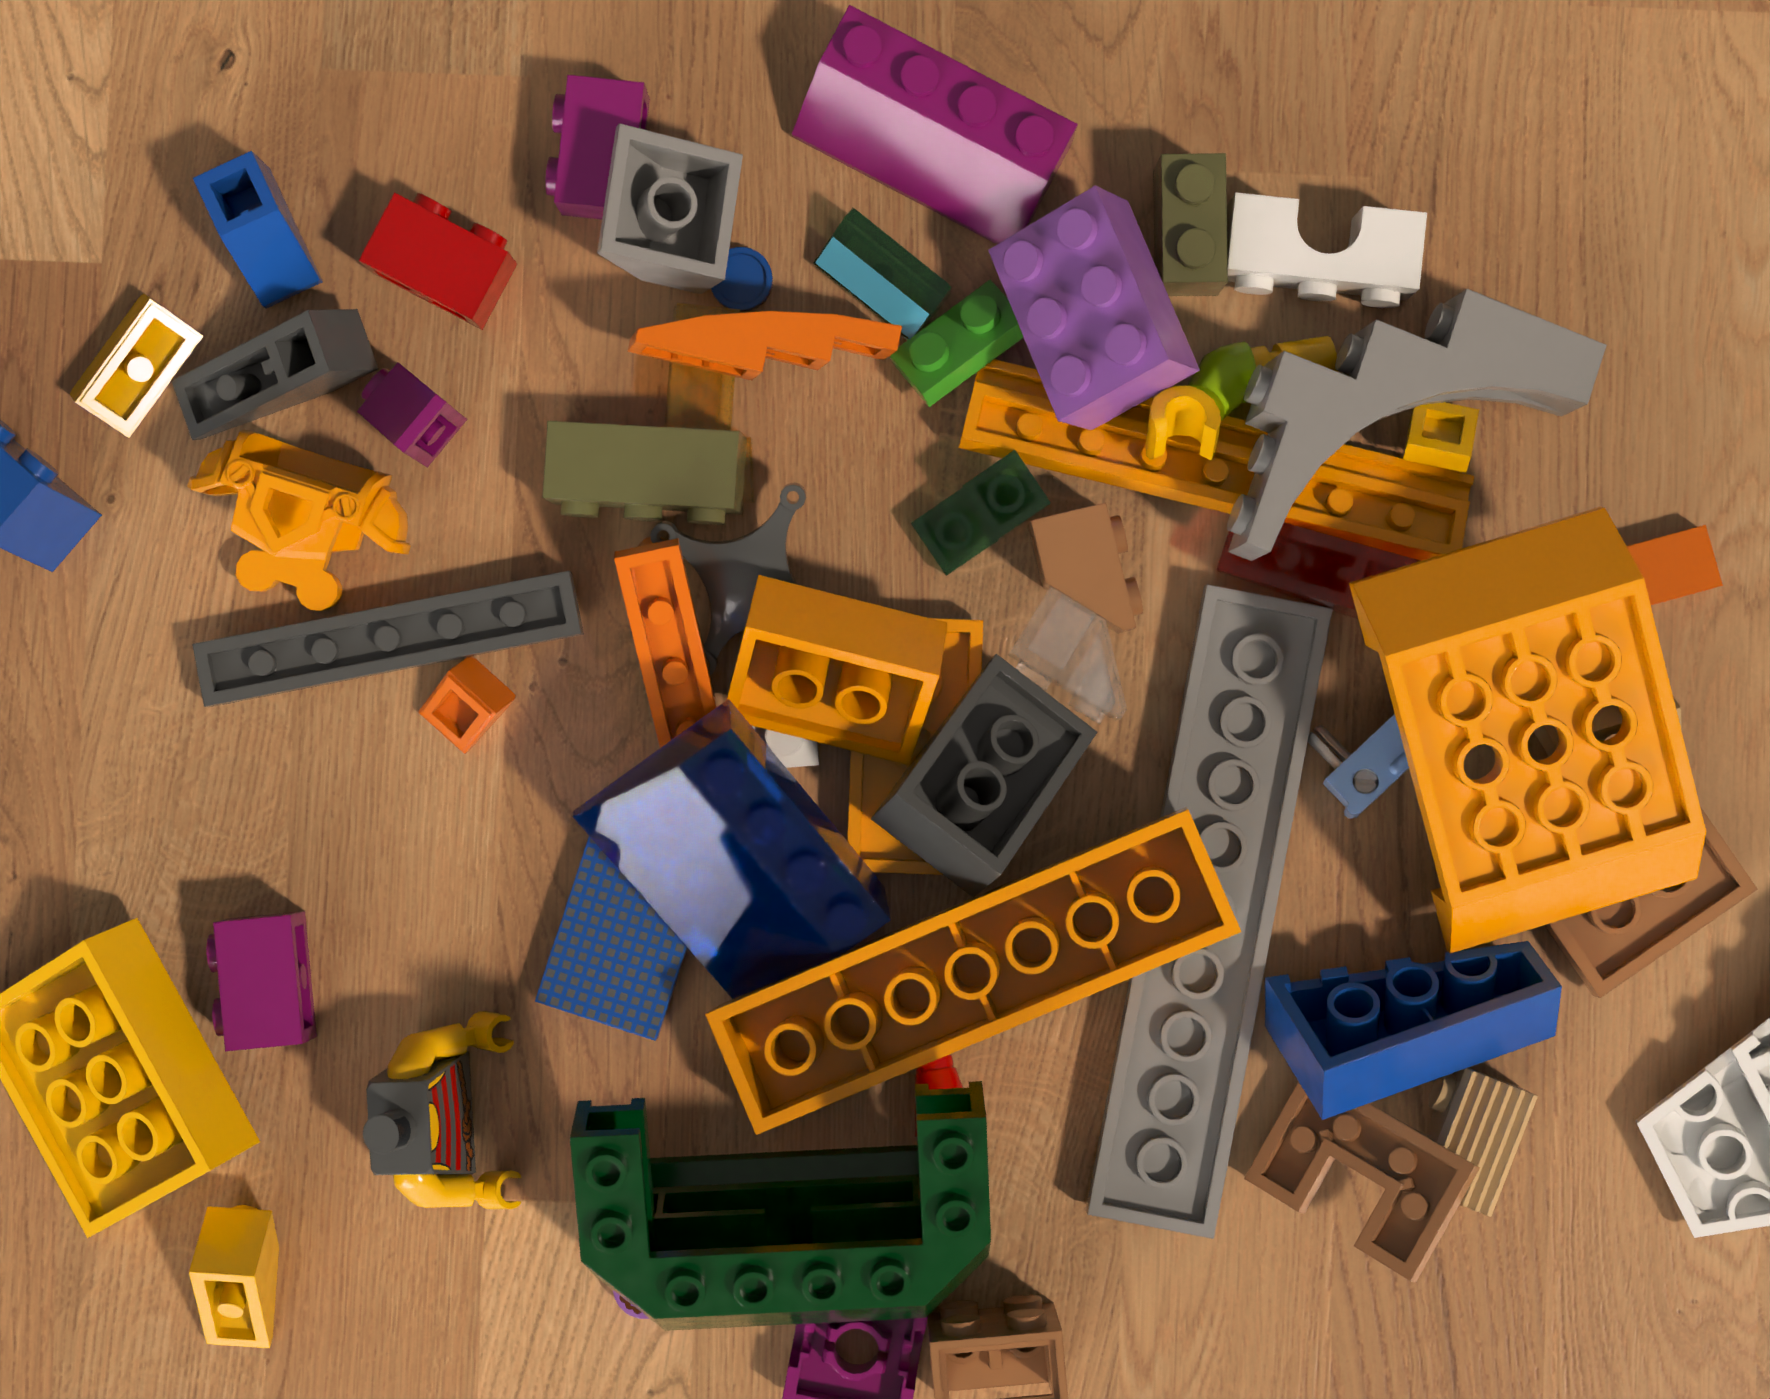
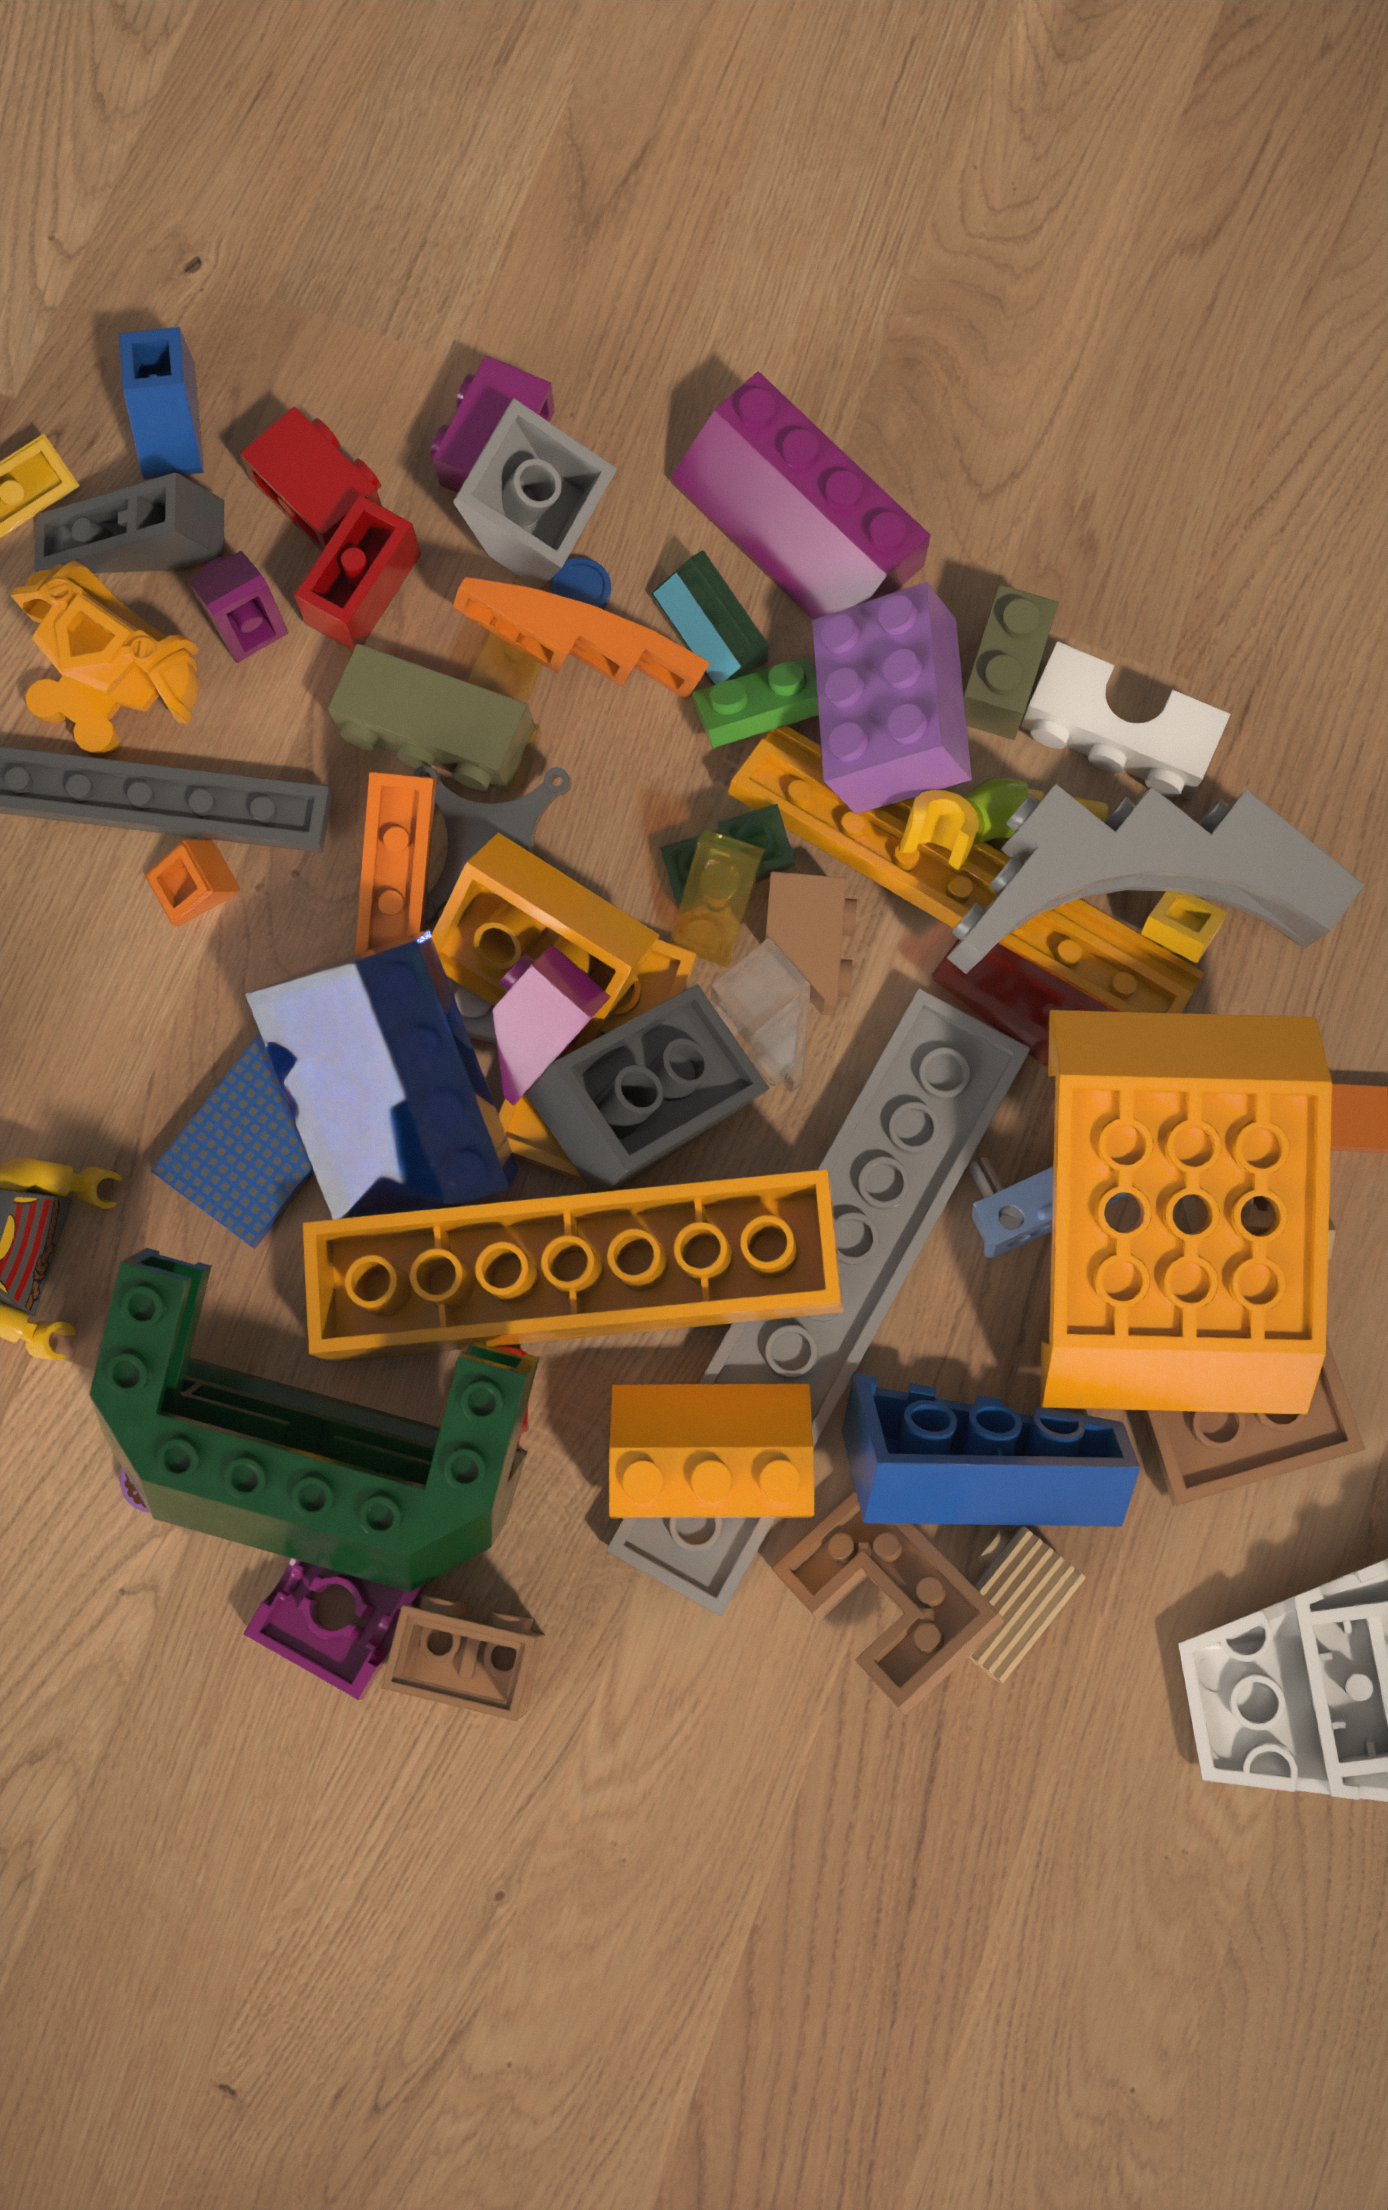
camera: 20 degrees right, 10 degrees down
(521, 345) = (358, 573): none -> red brick
(867, 747) = (540, 1016): none -> slope
(986, 561) = (716, 897): none -> clear yellow plate
(1159, 1098) = (711, 1451): none -> light orange slope

